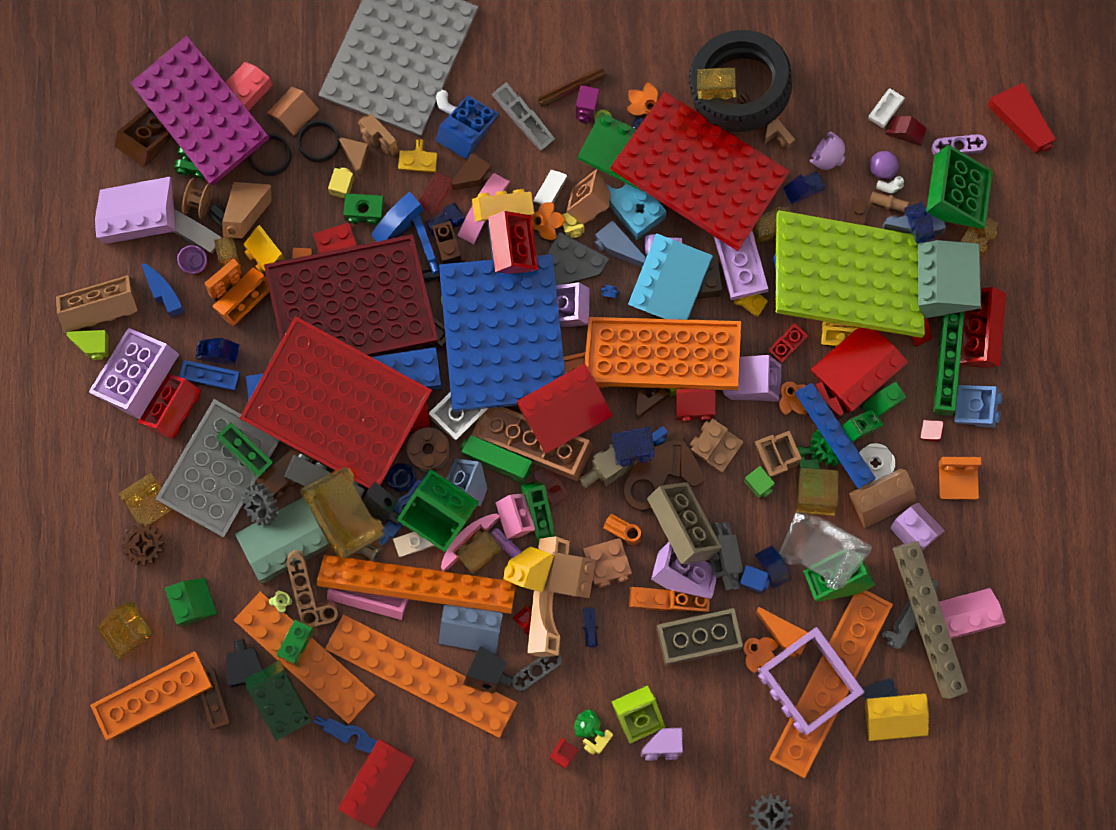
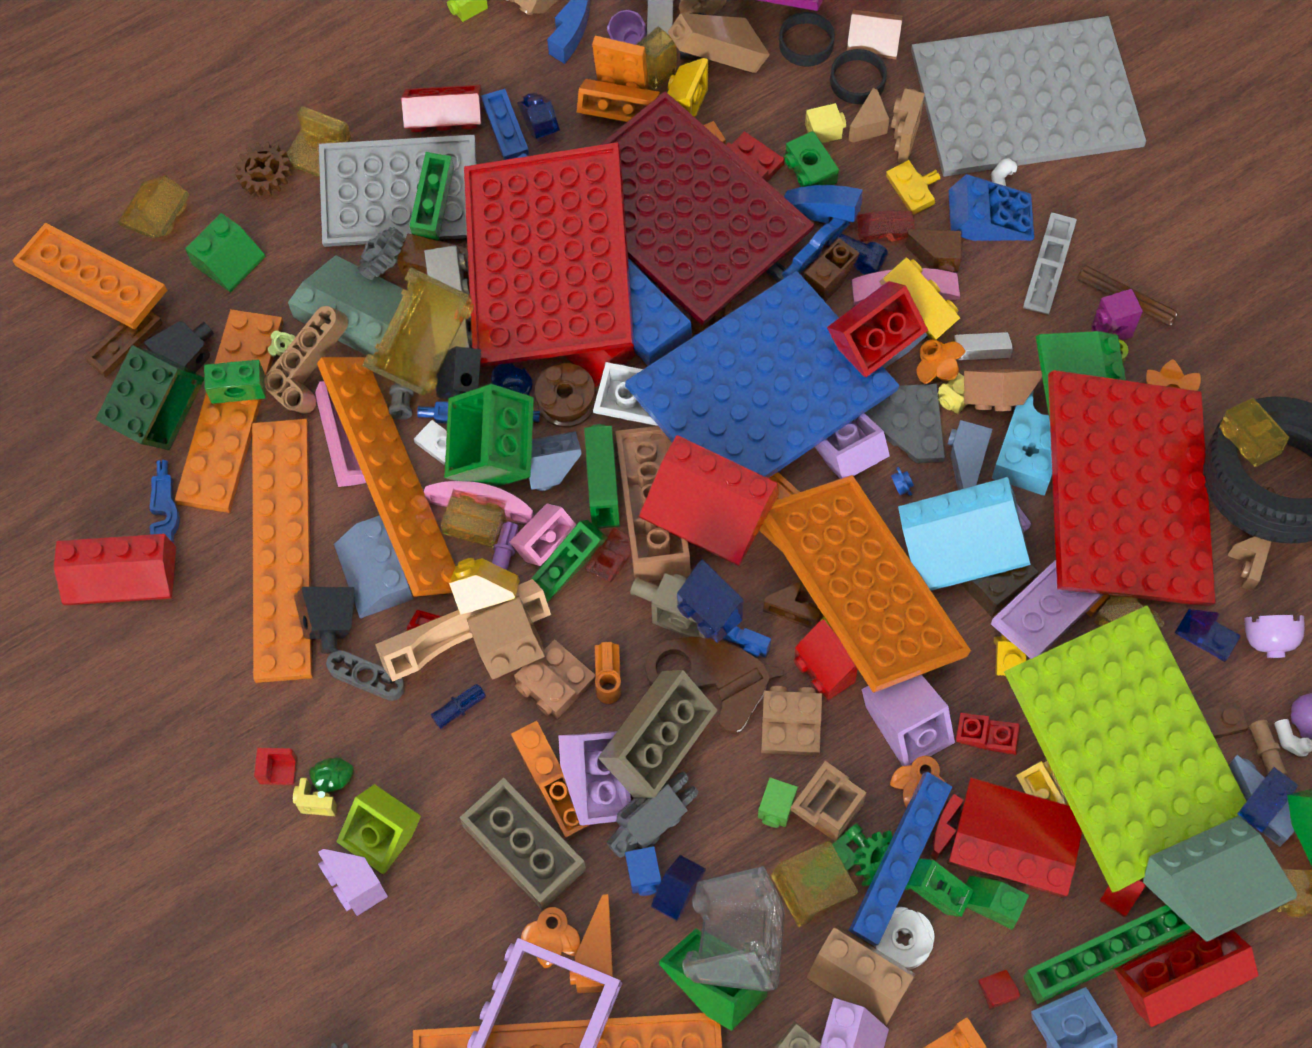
camera: 60 degrees right, 10 degrees down
(134, 372) = (457, 53): lavender slope -> none

